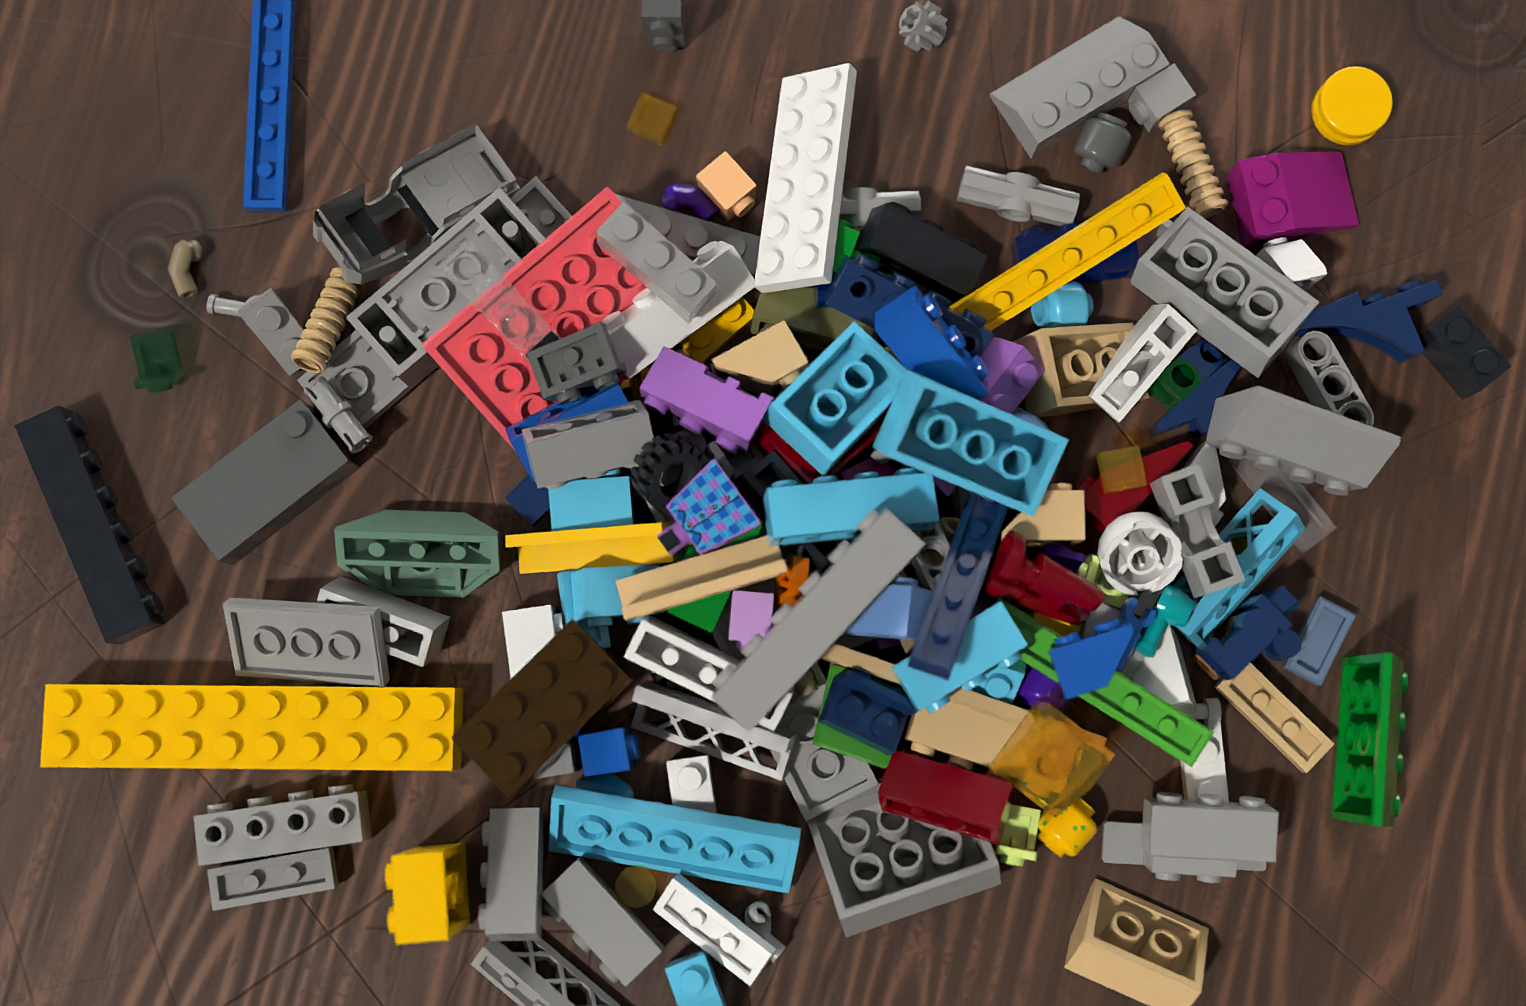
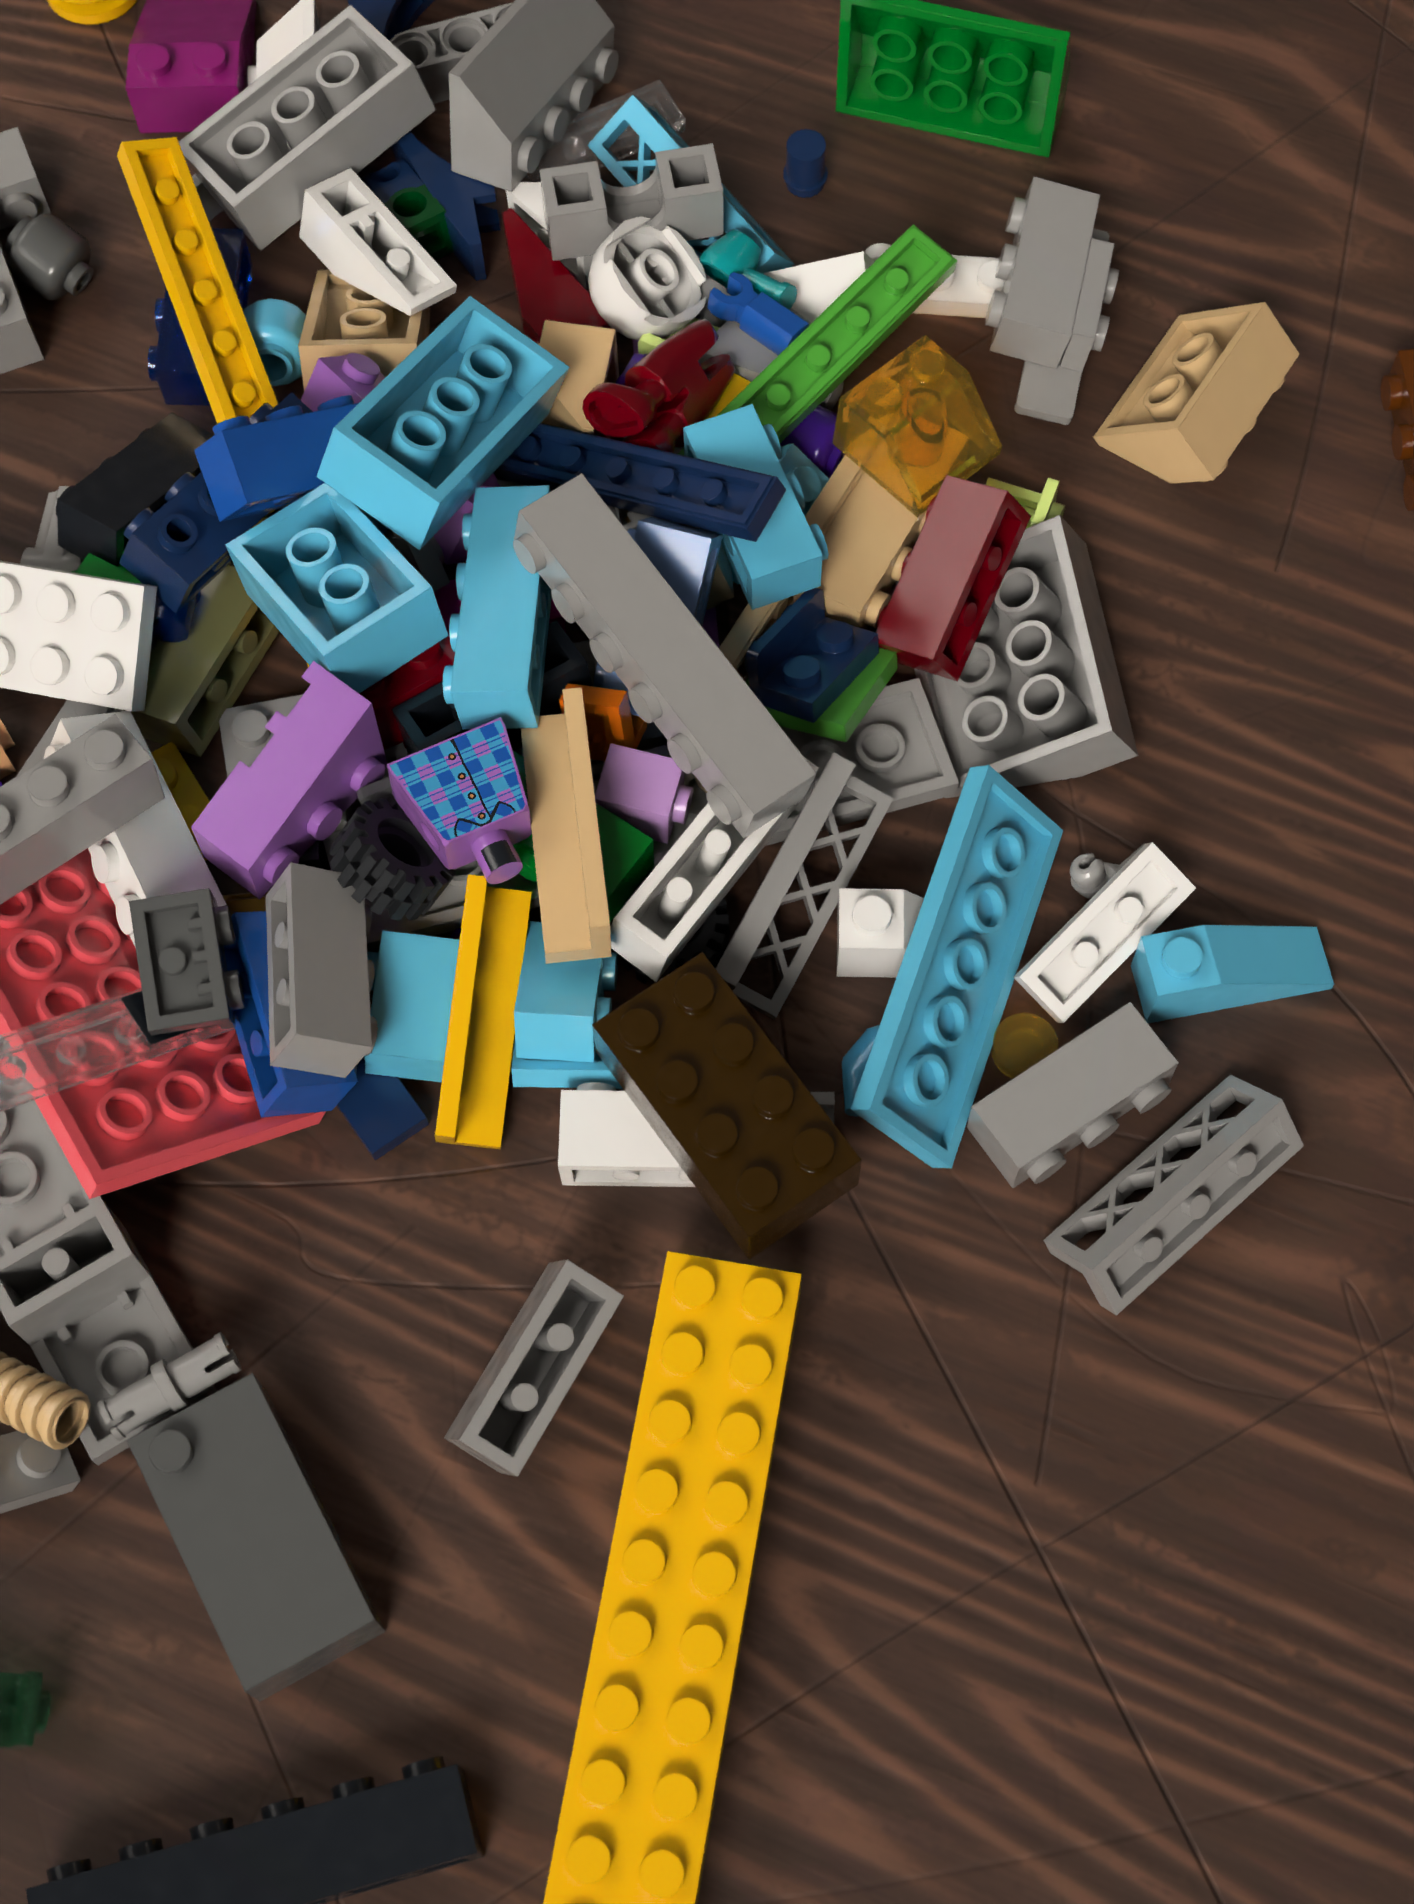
camera: 80 degrees left, 15 degrees down
(272, 878) = (935, 1622): light grey plate -> none
(282, 827) = (850, 1590): light grey brick -> none
(307, 641) = (543, 1491): light grey tile -> none
(419, 552) = (435, 1284): sand green wedge -> none
(428, 893) = (995, 1323): yellow brick -> none
(513, 874) = (982, 1208): light grey brick -> none
(609, 751) = (812, 1030): blue slope -> none
(764, 362) = (250, 683): tan slope -> none
(1018, 196) = (95, 374): light grey piece -> none
(1069, 830) = (1026, 453): yellow head -> none
(1089, 661) = (790, 342): blue slope -> none
(1121, 469) = (525, 289): clear yellow tile -> none
(1193, 163) = (89, 160): tan piece -> none
(1246, 633) = (785, 186): dark blue hips -> none
(1275, 717) = (899, 190): tan plate -> none
(1321, 640) = (790, 110): sand blue tile -> none

